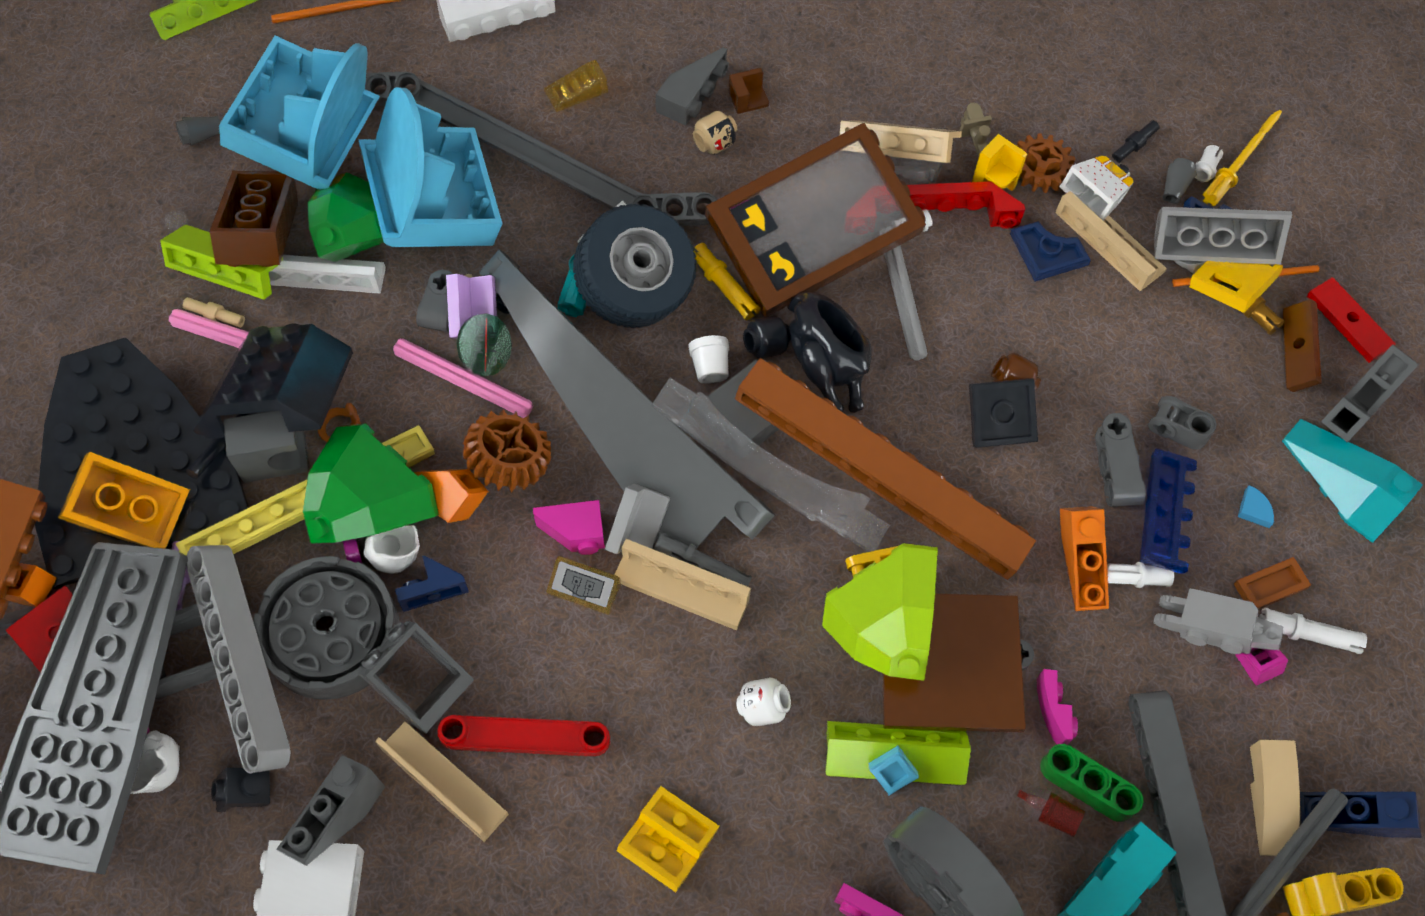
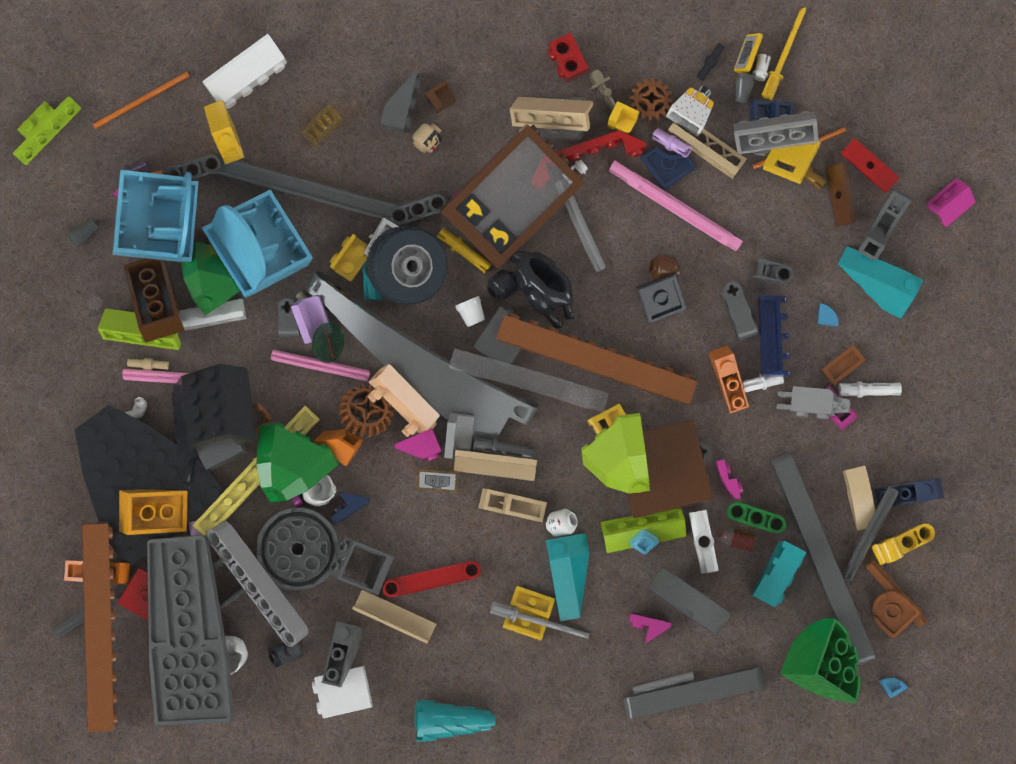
camera: 10 degrees left, 20 degrees up
(176, 366) = (139, 408): none -> white arm
(438, 47) = (224, 132): none -> yellow brick
(552, 249) = (350, 258): none -> yellow bracket
(569, 445) = (404, 399): none -> light nougat brick
(639, 826) = (512, 613): none -> light grey piece
(691, 654) = (512, 505): none -> tan slope
(756, 780) = (568, 567): none -> teal wedge
(937, 87) = (572, 56): none -> red brick
(993, 820) = (701, 527): none -> white piece
(1051, 303) = (675, 206): none -> bright pink piece
(1062, 218) = (671, 142): none -> lavender pin
(1194, 140) = (748, 53): none -> slope

